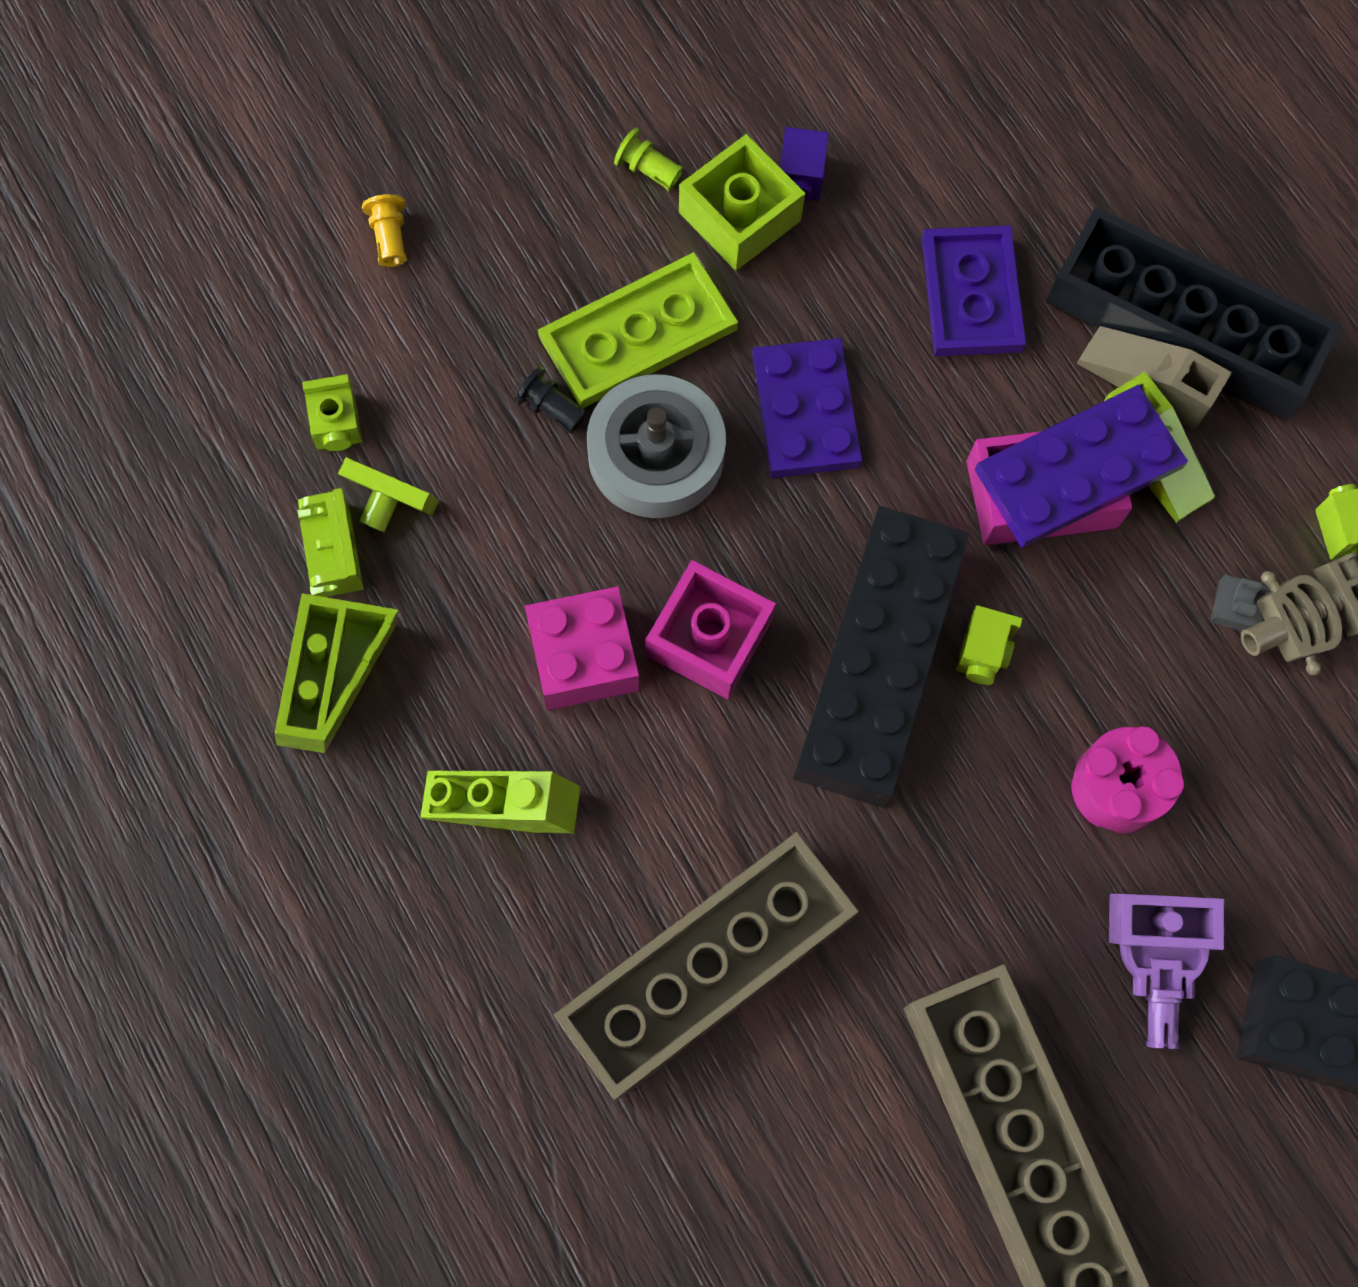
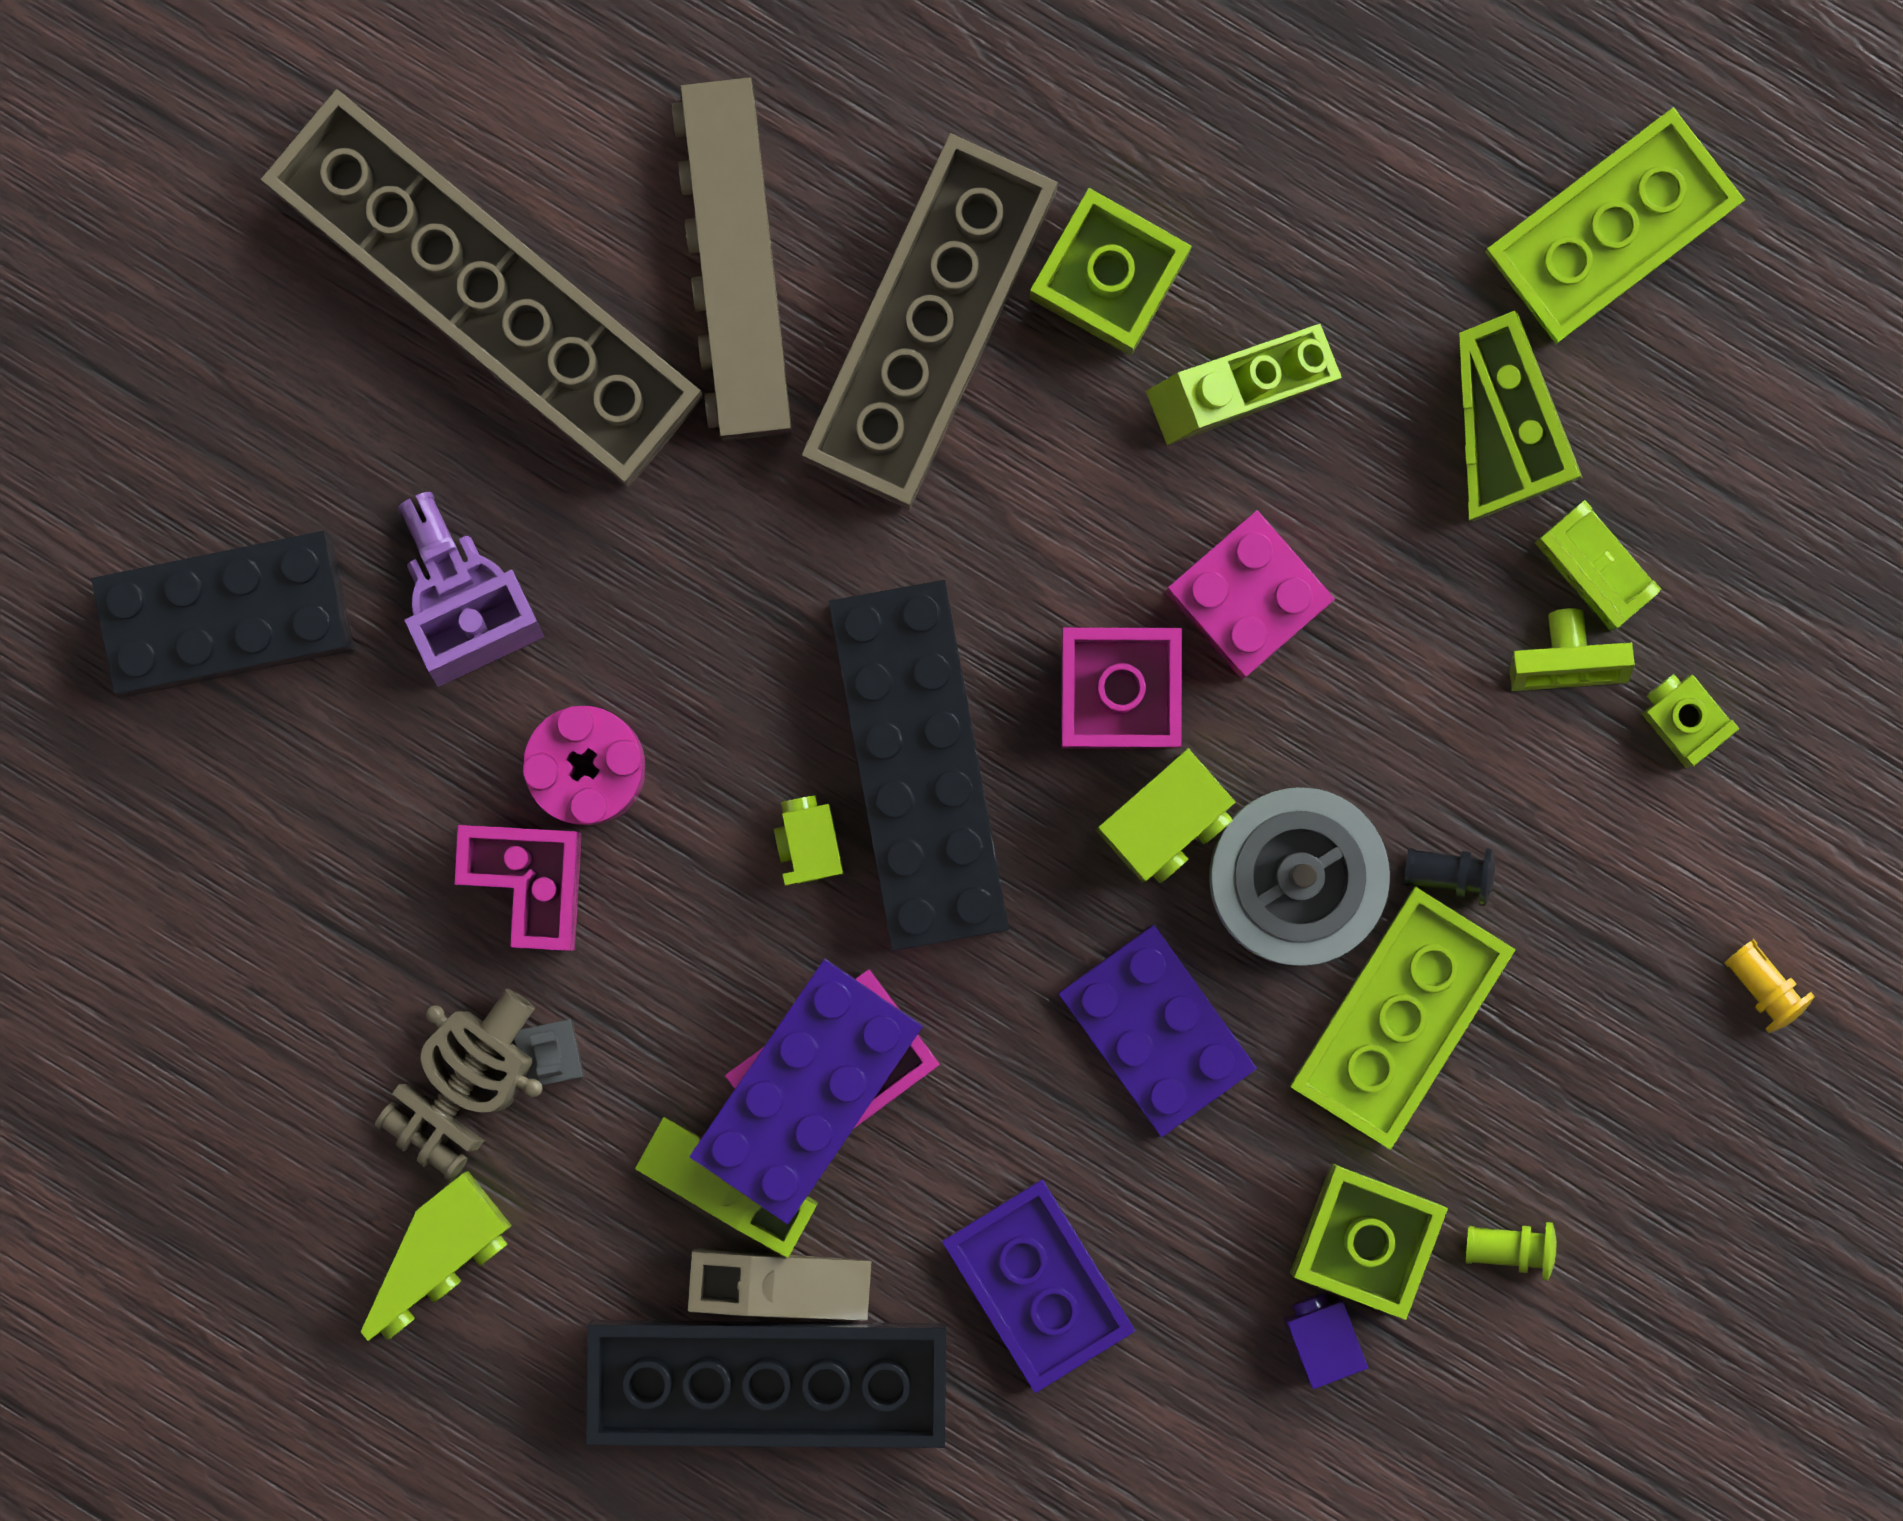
camera: 155 degrees right, 15 degrees up
(168, 770) = (1614, 225): none -> lime plate
(551, 930) = (1109, 272): none -> lime brick
(729, 522) = (1166, 817): none -> lime brick
(827, 1101) = (735, 259): none -> dark tan brick
(1202, 729) = (539, 867): none -> dark pink brick

